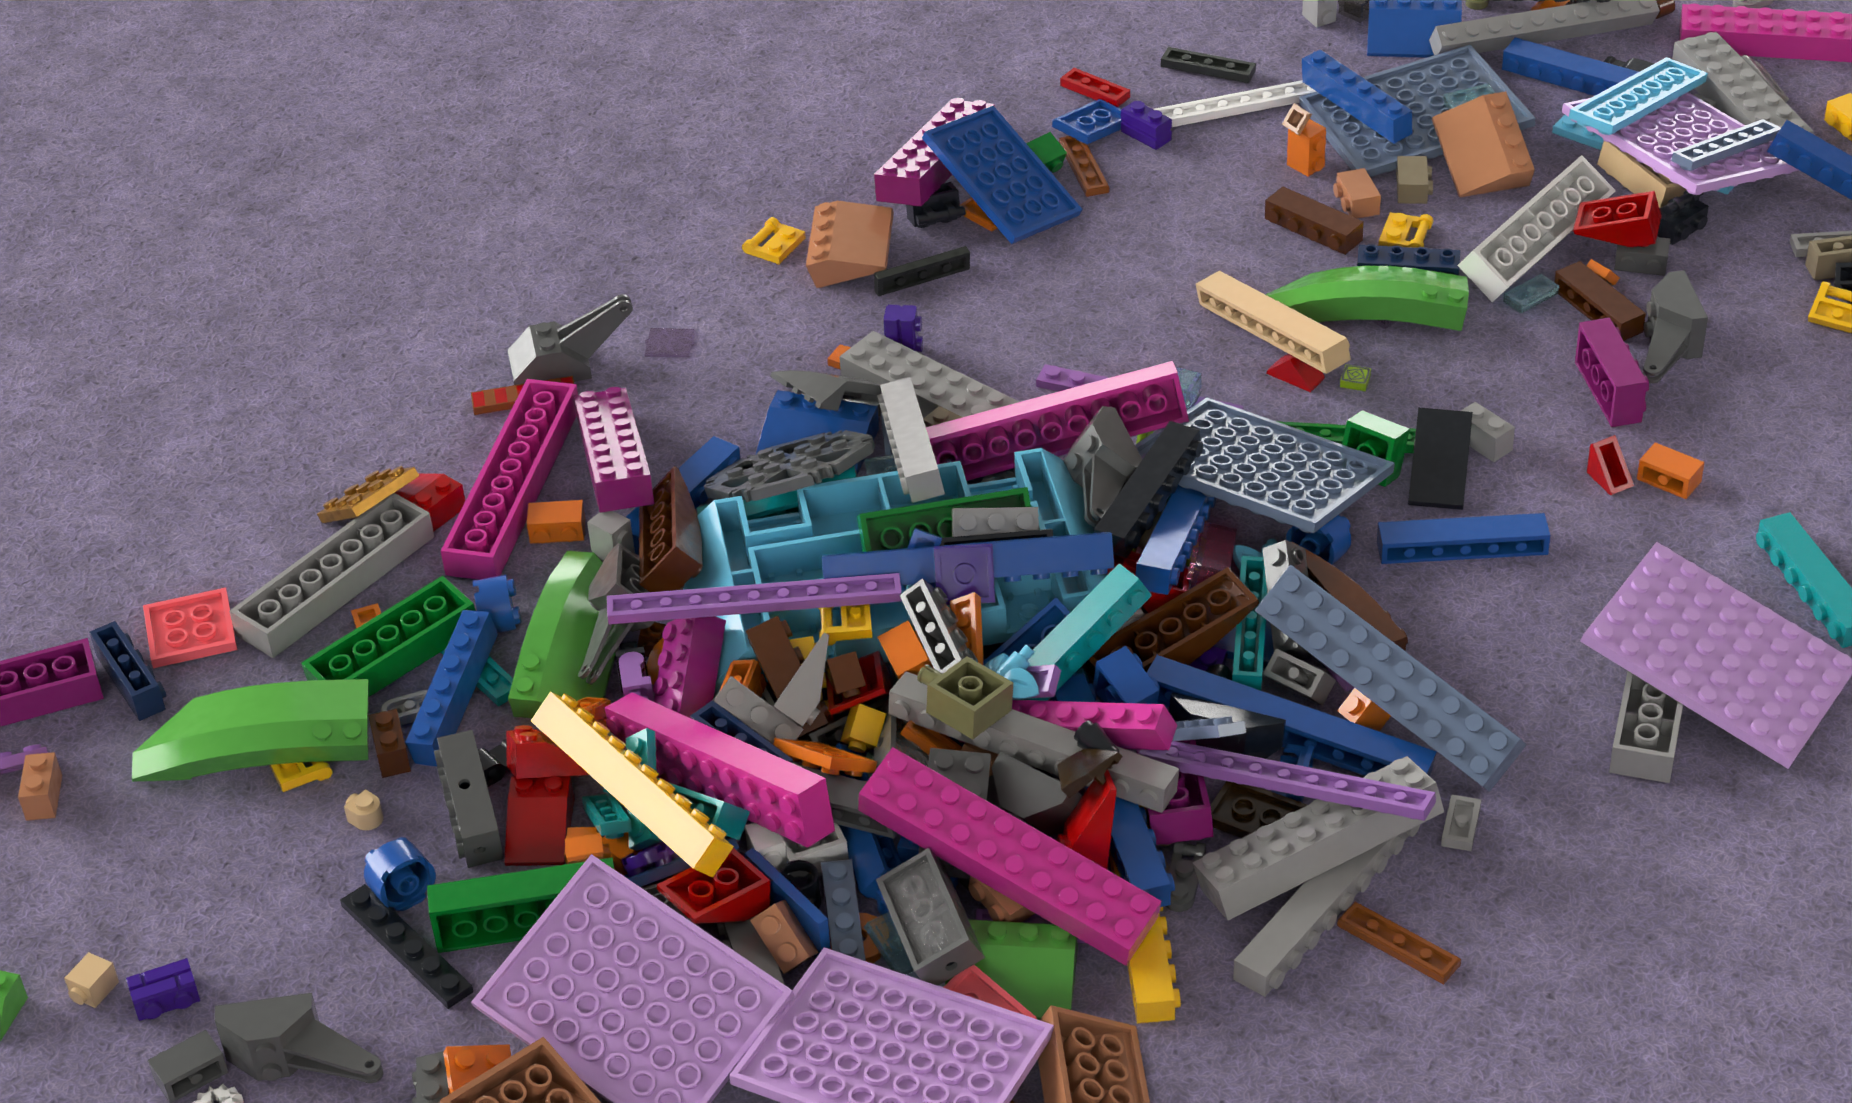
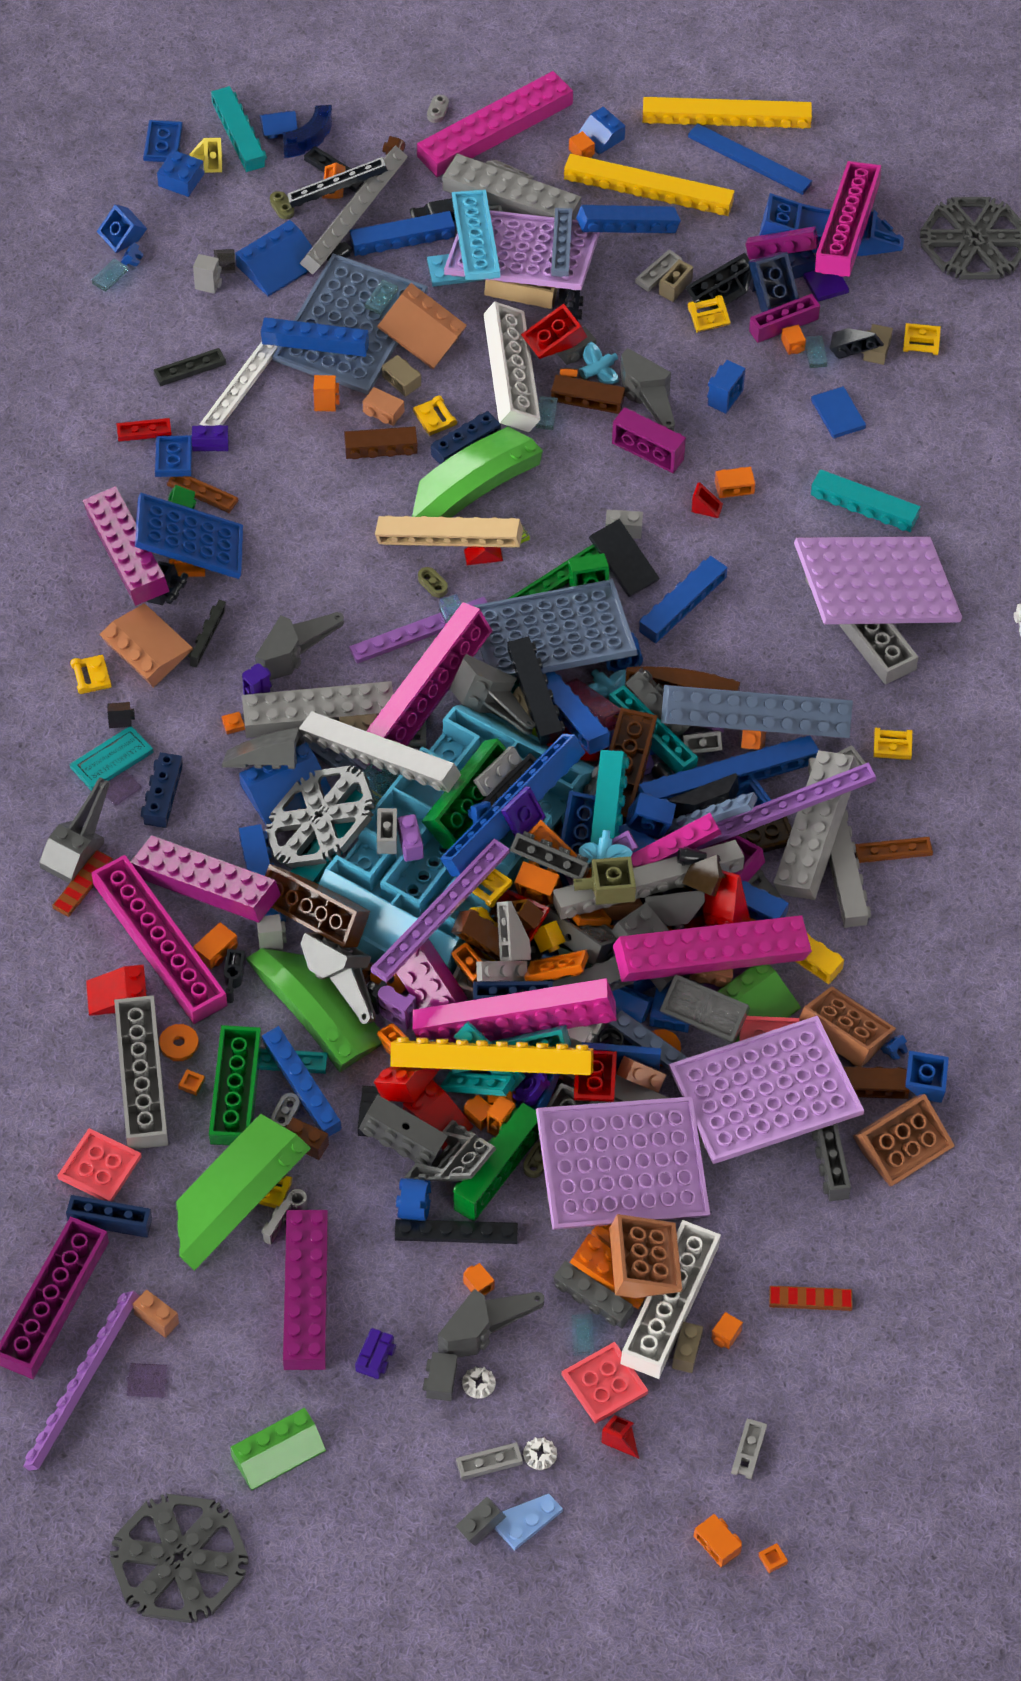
camera: 50 degrees left, 15 degrees up
(91, 980) = (333, 1380): tan brick -> none
(189, 876) = (305, 1290): none -> magenta brick
(271, 793) = (272, 1228): none -> light grey plate
(352, 1006) = (478, 1278): none -> orange brick
(363, 497) = (96, 1012): pearl gold plate -> none
(364, 810) = (341, 1183): tan plate -> none
(396, 574) = (175, 1032): none -> orange tile
(481, 862) = (460, 1158): none -> dark grey wedge
(496, 598) = (259, 1014): blue brick -> none
(537, 555) = (233, 967): none -> black piece
(694, 315) = (111, 757): none -> teal tile
(698, 366) = (162, 790): none -> dark blue brick
(746, 282) = (120, 715): none -> black brick
(807, 499) = (387, 831): none -> light grey brick
(824, 522) = (410, 837): none -> medium lavender brick
(889, 944) = (687, 1036): clear light blue plate -> none
(973, 317) = (288, 641): none -> dark grey slope
(1206, 361) = (435, 582): none -> olive plate
(1296, 119) = (319, 382): medium nougat slope -> none
(1490, 54) = (341, 249): none -> black cone
(1536, 840) = (892, 747): none -> yellow plate
(1647, 276) = (598, 365): none -> medium azure plant
(1770, 375) = (726, 386): none -> blue brick

